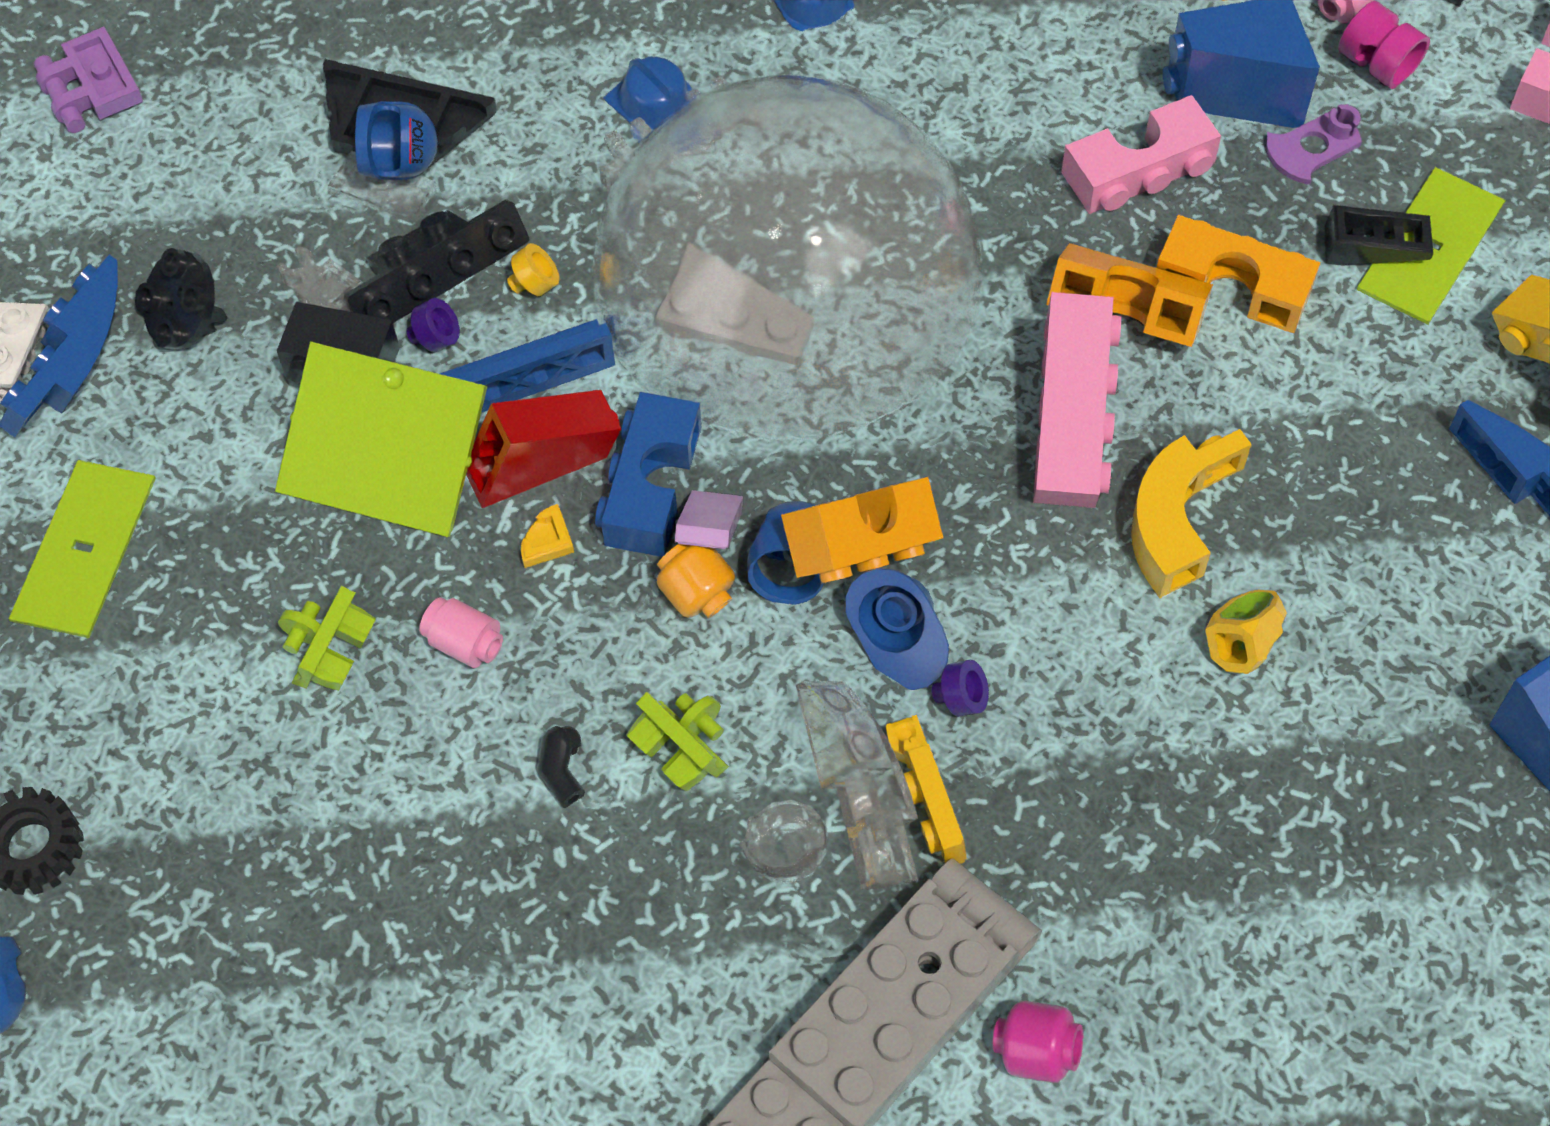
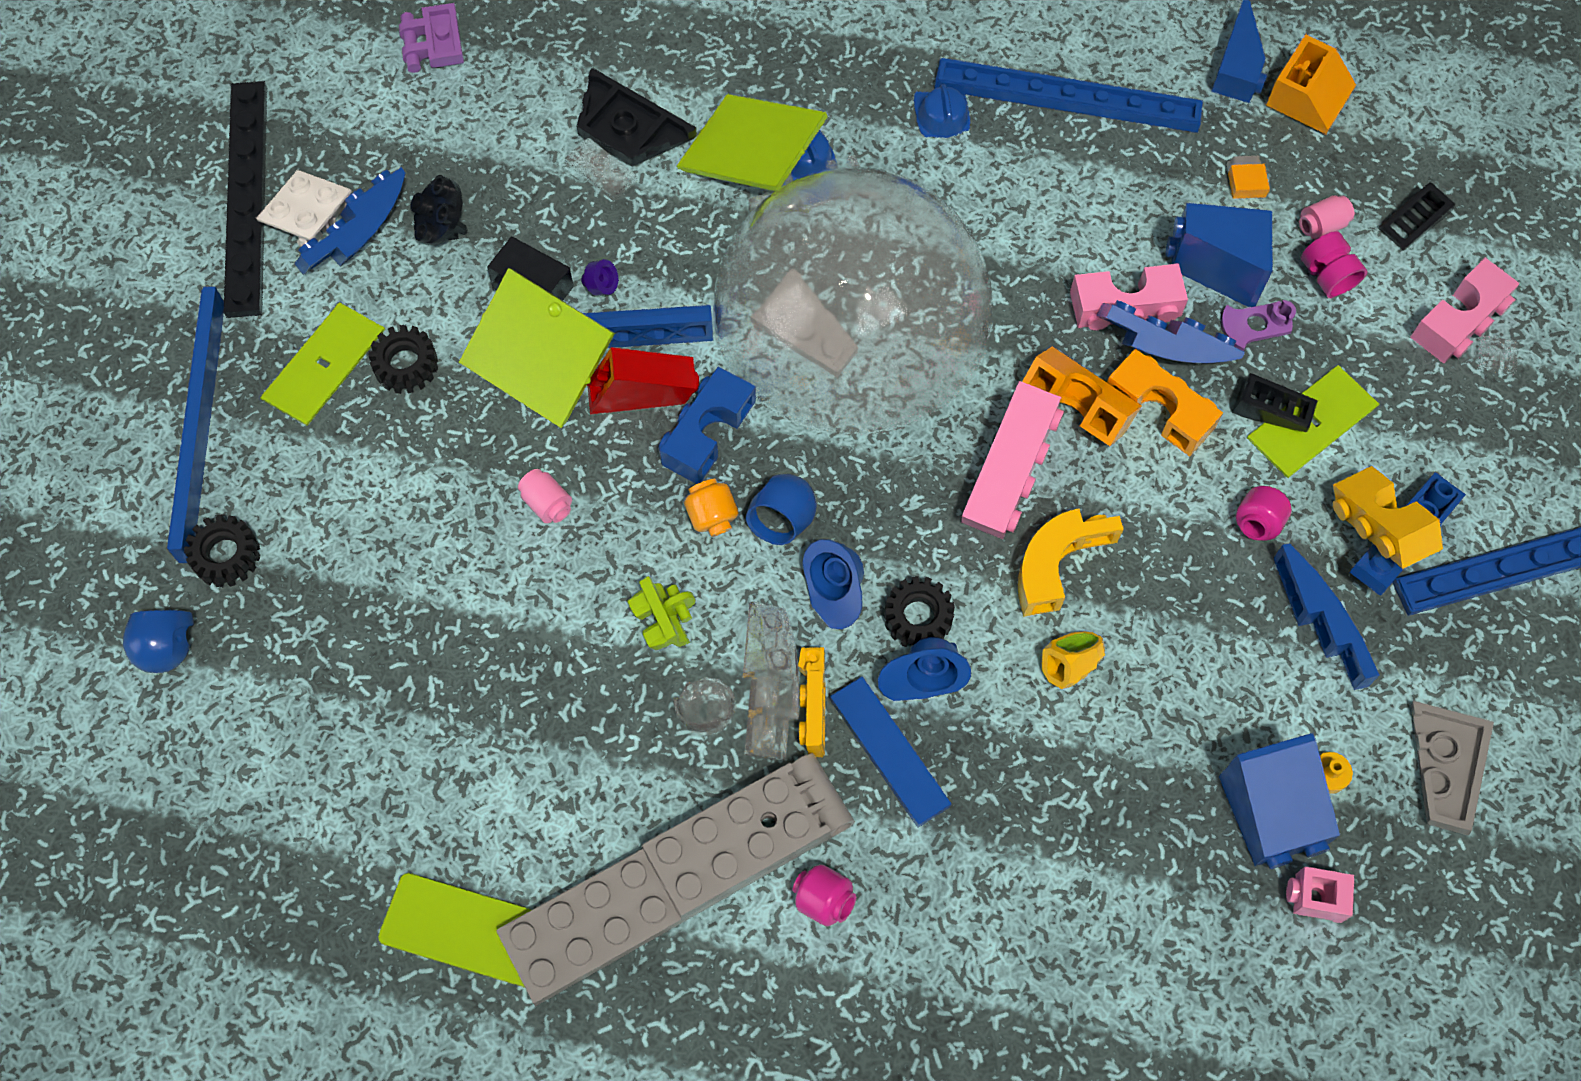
camera: 15 degrees right, 5 degrees up
(194, 482) = (398, 341): none -> black tyre
(316, 284) = (537, 229): clear plate -> none
(319, 662) = (446, 488): lime hips -> none
(393, 140) = (613, 140): blue helmet -> none
(435, 259) = (616, 232): black bracket -> none
(533, 271) = (680, 258): yellow tile -> none
(546, 538) = (624, 448): yellow tile -> none
(553, 764) = (573, 606): black arm -> none
(577, 95) = (752, 142): none -> lime piece
(709, 519) = (733, 469): lavender tile -> none
(862, 530) = (806, 510): light orange arch -> none
(962, 688) = (863, 638): dark purple tile -> none
(1031, 606) = (918, 592): none -> black tyre
(1053, 826) = (890, 752): none -> blue tile
(1064, 704) = (926, 672): none -> blue piece
(1213, 193) = (1179, 342): none -> slope
(1417, 374) = (1263, 513): none -> dark pink head

